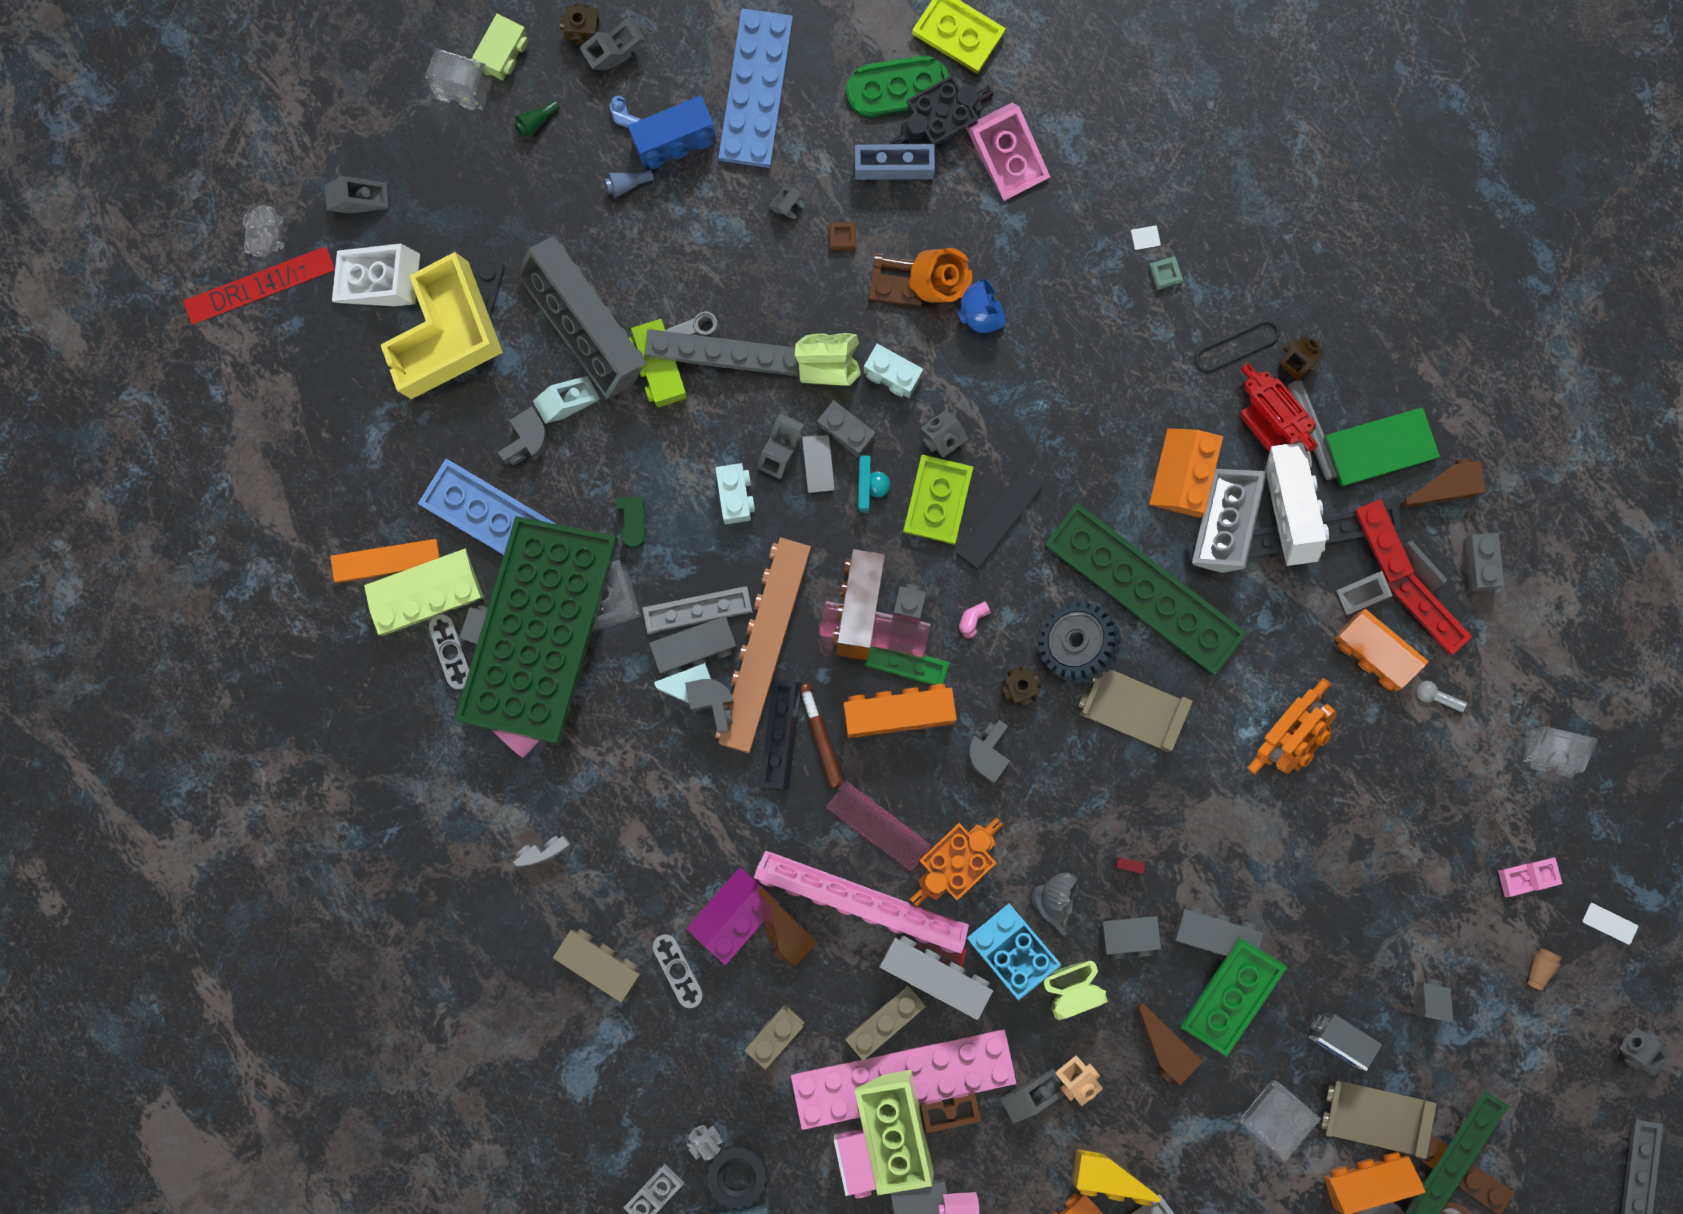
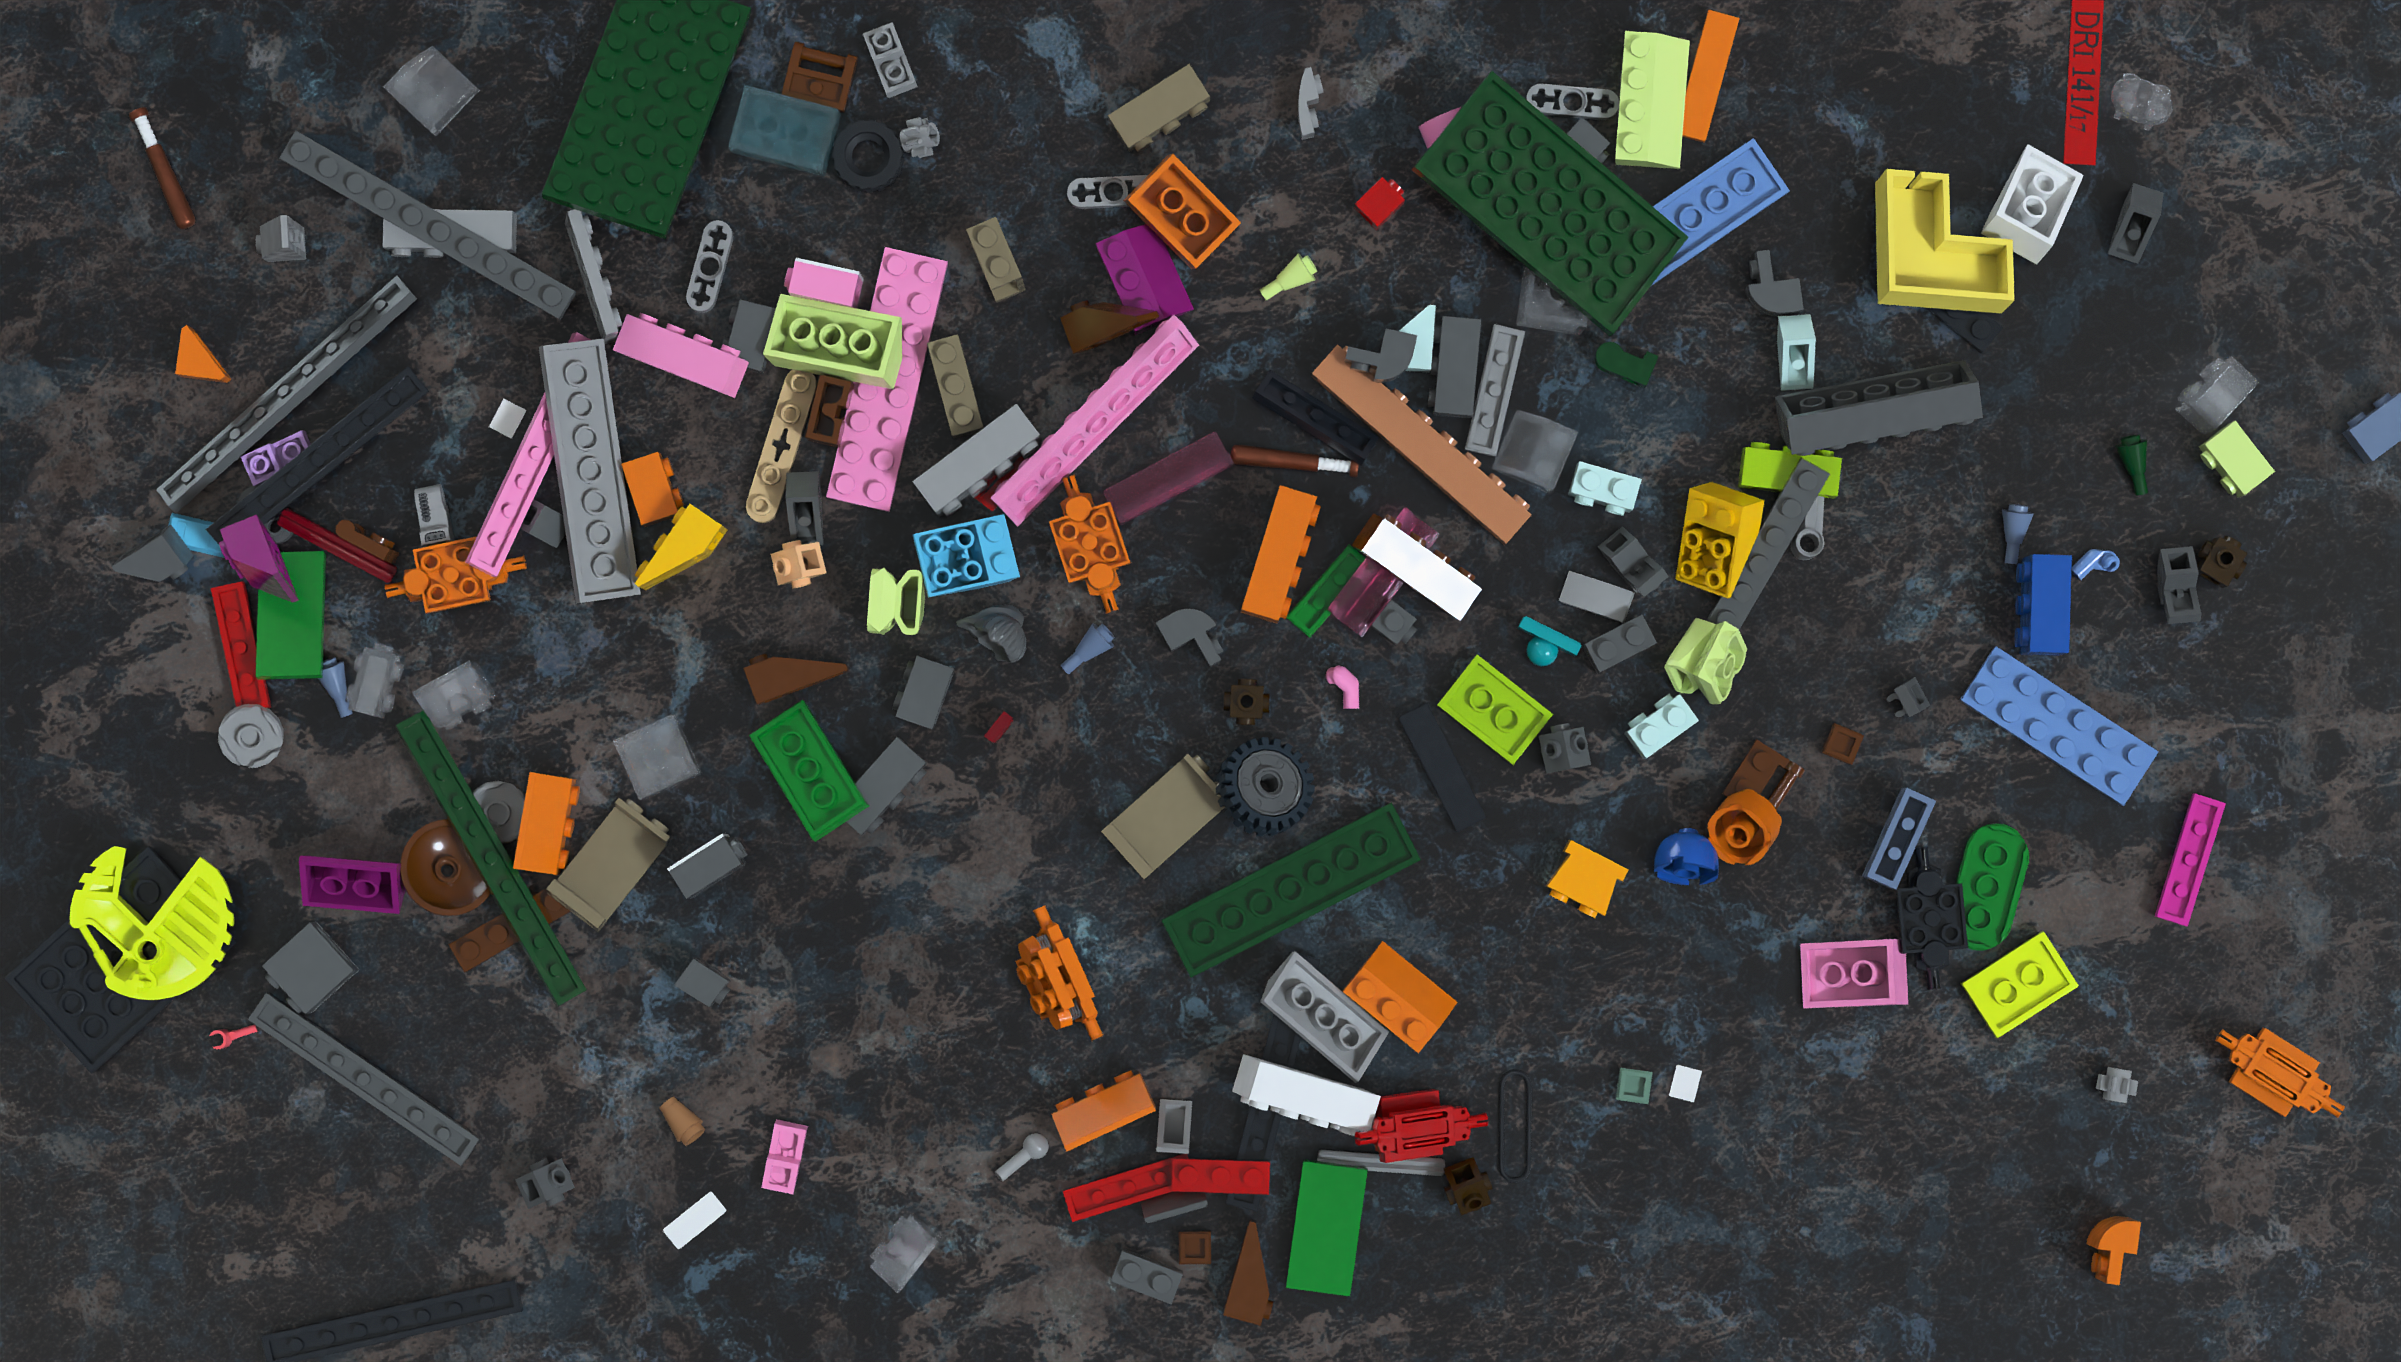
camera: 115 degrees right, 5 degrees up
(593, 761) = (1380, 202): none -> red brick
(670, 909) = (1182, 211): none -> orange brick
(678, 801) = (1296, 273): none -> yellowish green cone
(729, 558) = (1535, 450): none -> clear slope
(732, 392) = (1717, 537): none -> yellow slope
(1020, 1135) = (770, 476): none -> tan piece
(1030, 823) = (1095, 642): none -> sand blue cone
(1032, 375) = (1586, 879): none -> light orange hips
(1443, 538) = (1194, 1247): none -> reddish brown tile

